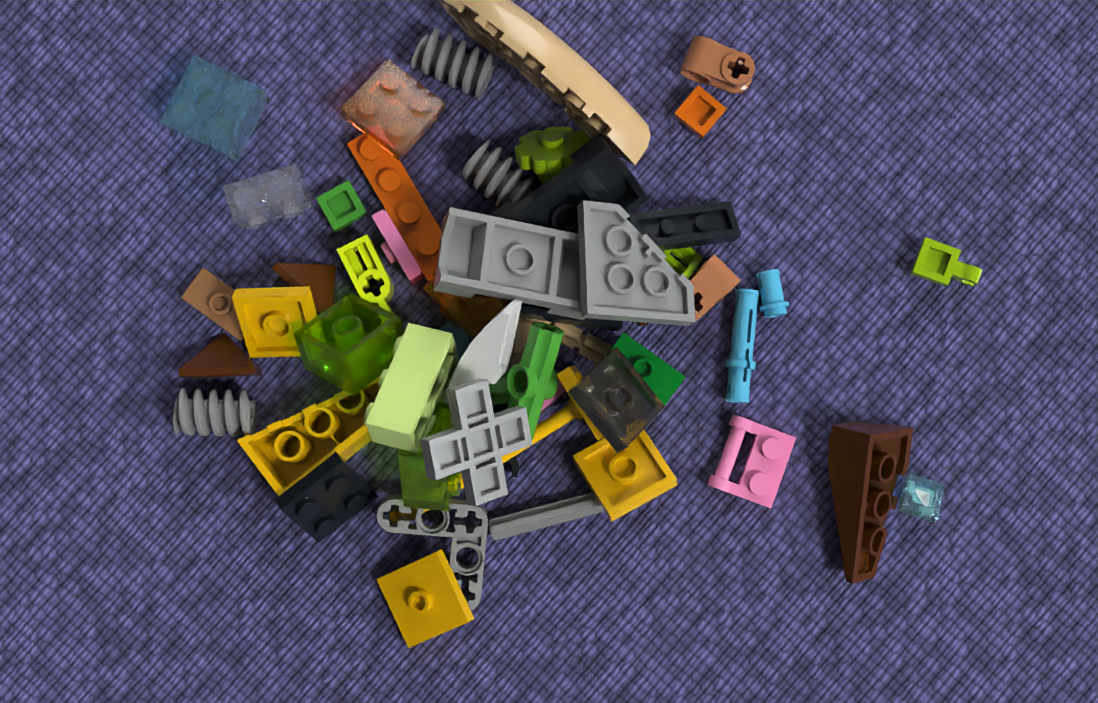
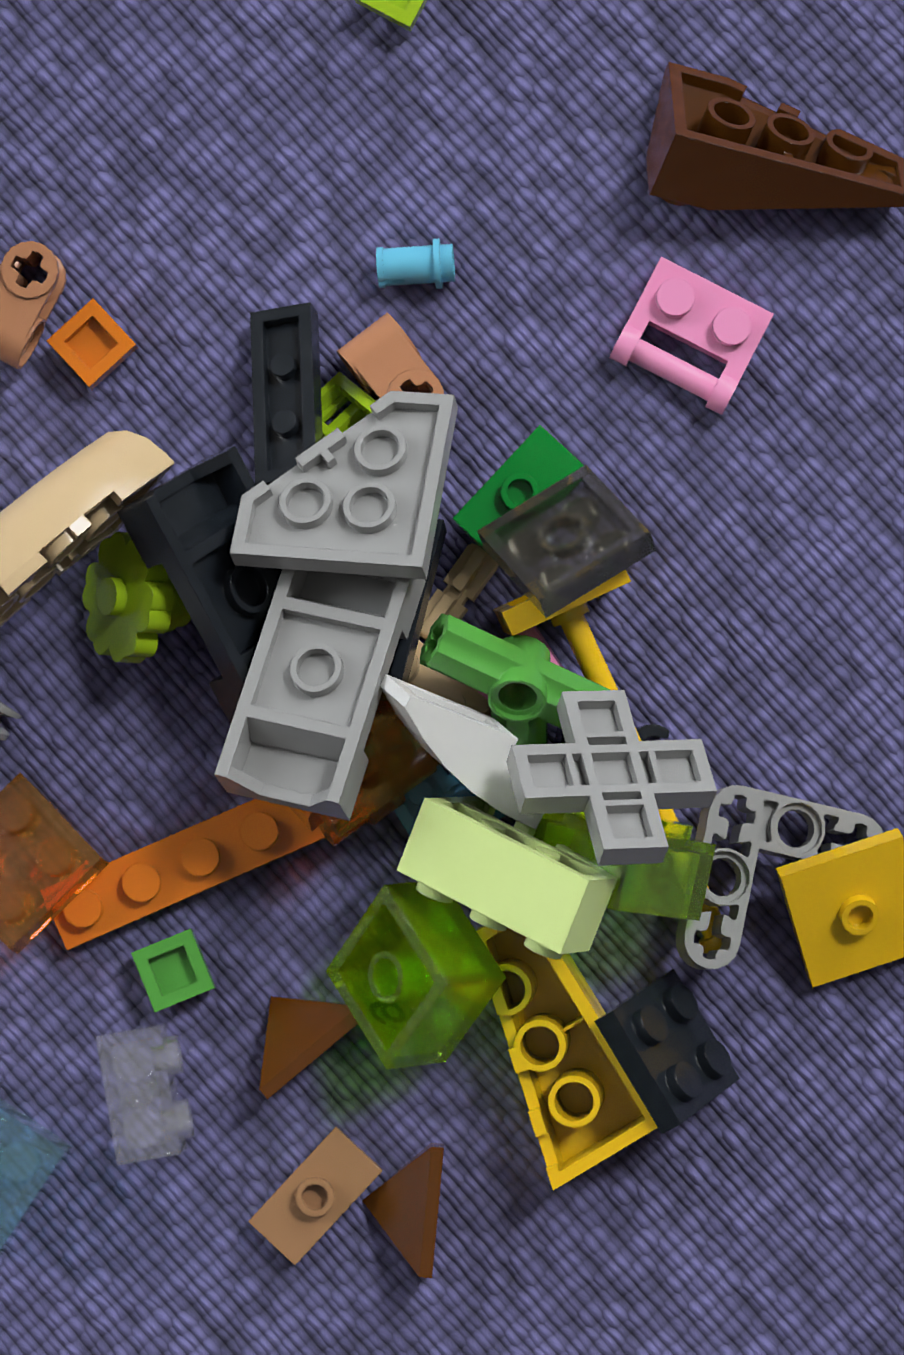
camera: 85 degrees left, 0 degrees up
(214, 414) = (500, 1227): light grey piece -> none
(271, 317) = (354, 1105): yellow plate -> none
(361, 277) = (286, 925): neon yellow piece -> none
(396, 248) = (256, 886): bright pink plate -> none
(497, 176) = (164, 692): light grey piece -> none
(544, 516) = (736, 662): light grey axle -> none
(627, 477) = (698, 545): yellow plate -> none
(742, 344) = (496, 325): medium azure pin -> none
(921, 498) = (786, 64): clear light blue tile -> none

